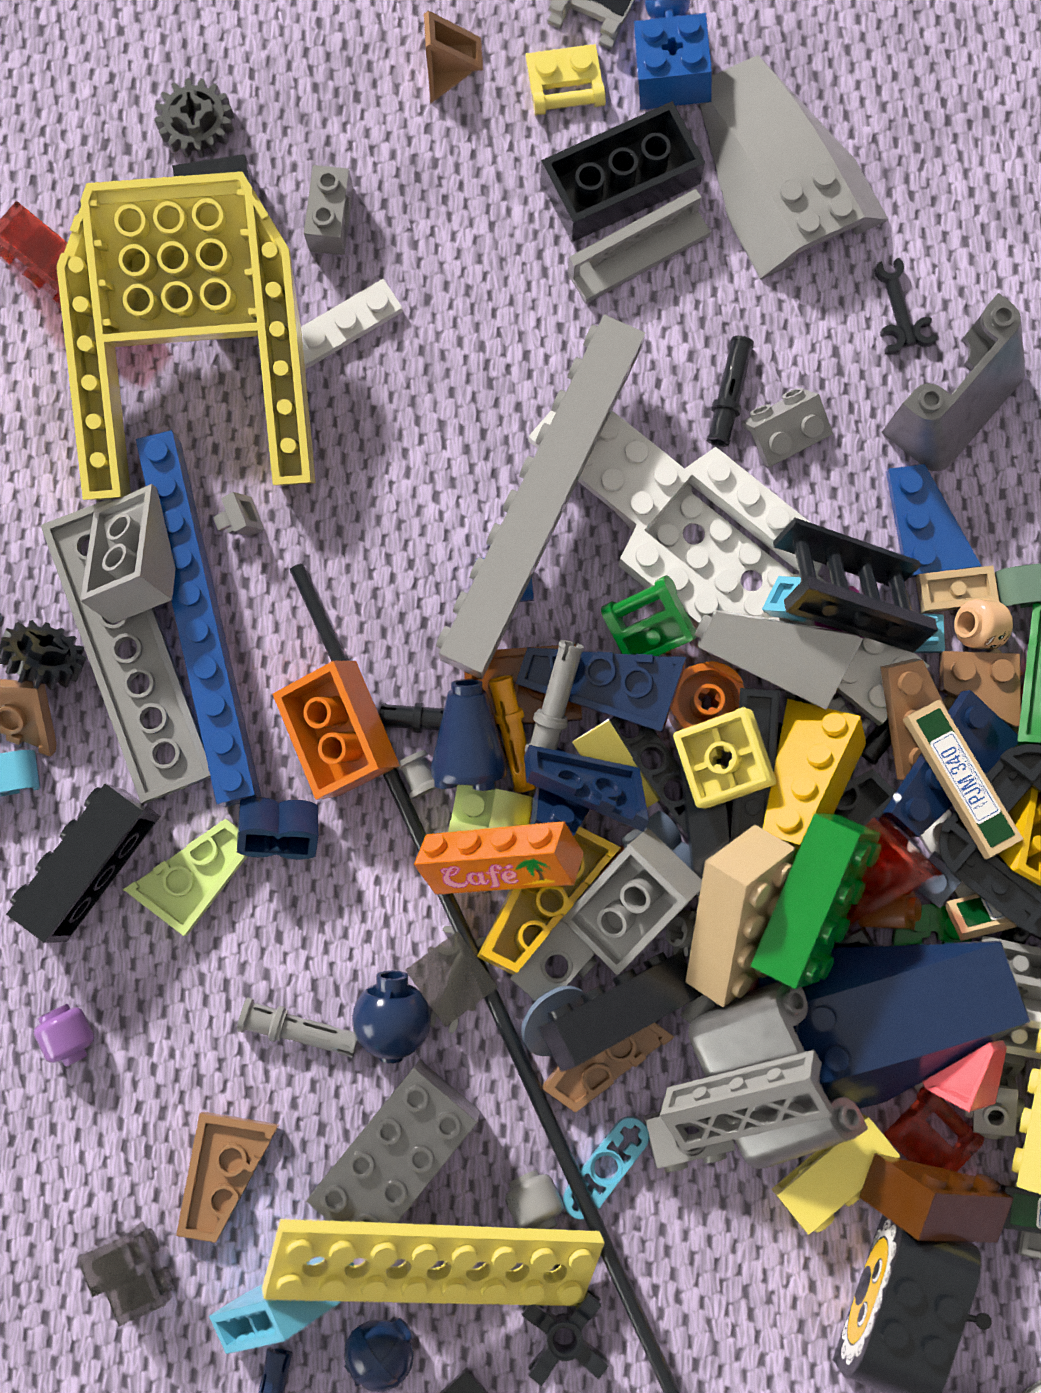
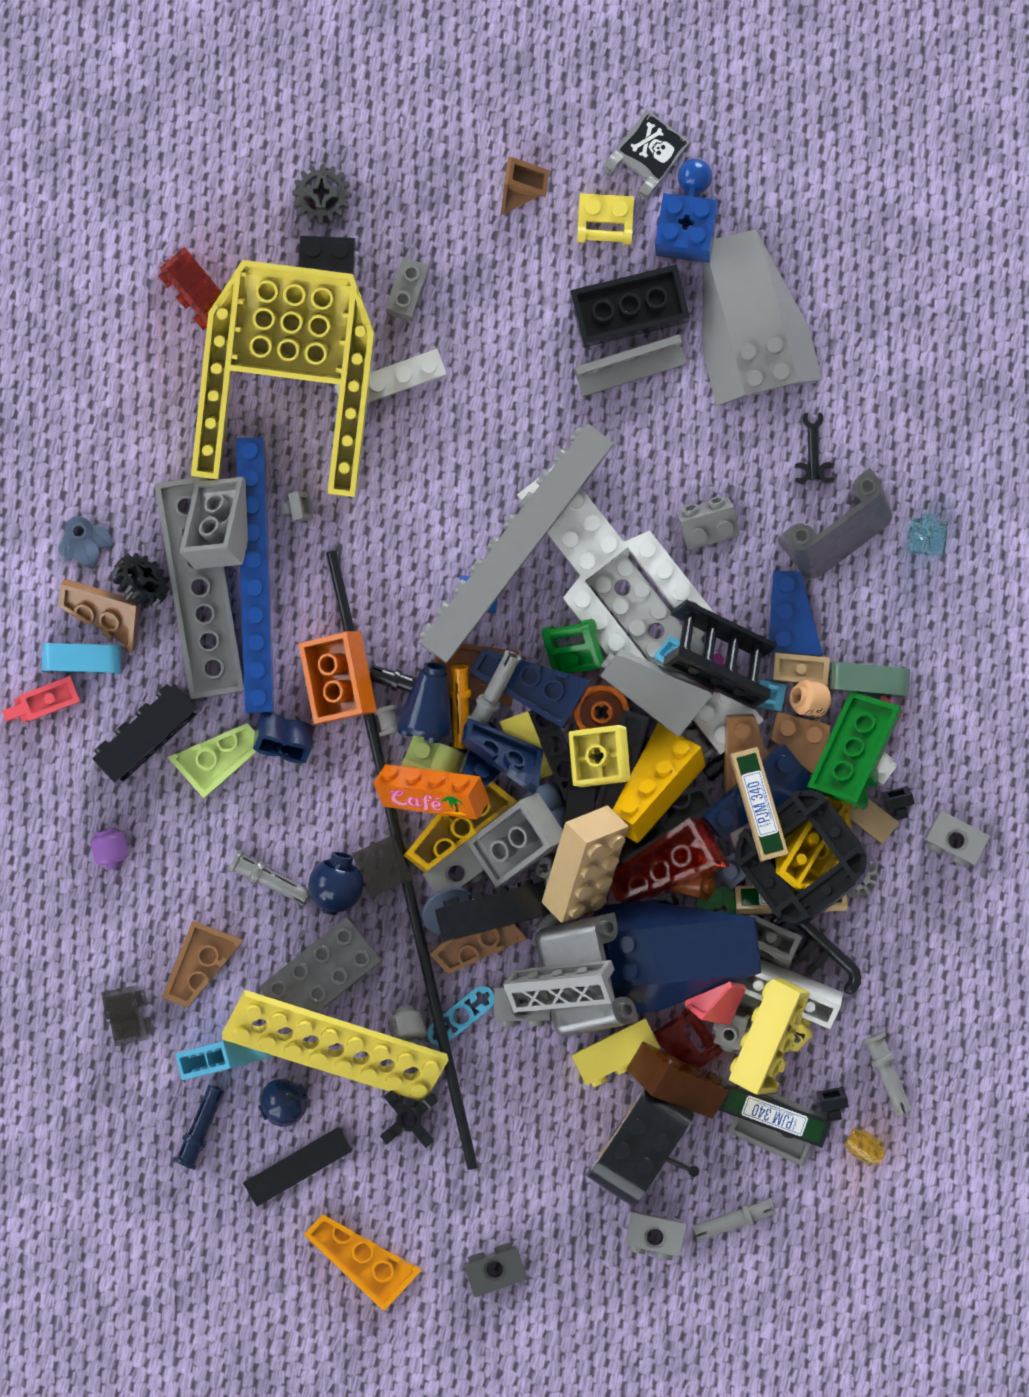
camera: 10 degrees right, 5 degrees up
(727, 404) = (675, 482): black pin -> none
(817, 900) = (637, 863): green brick -> none

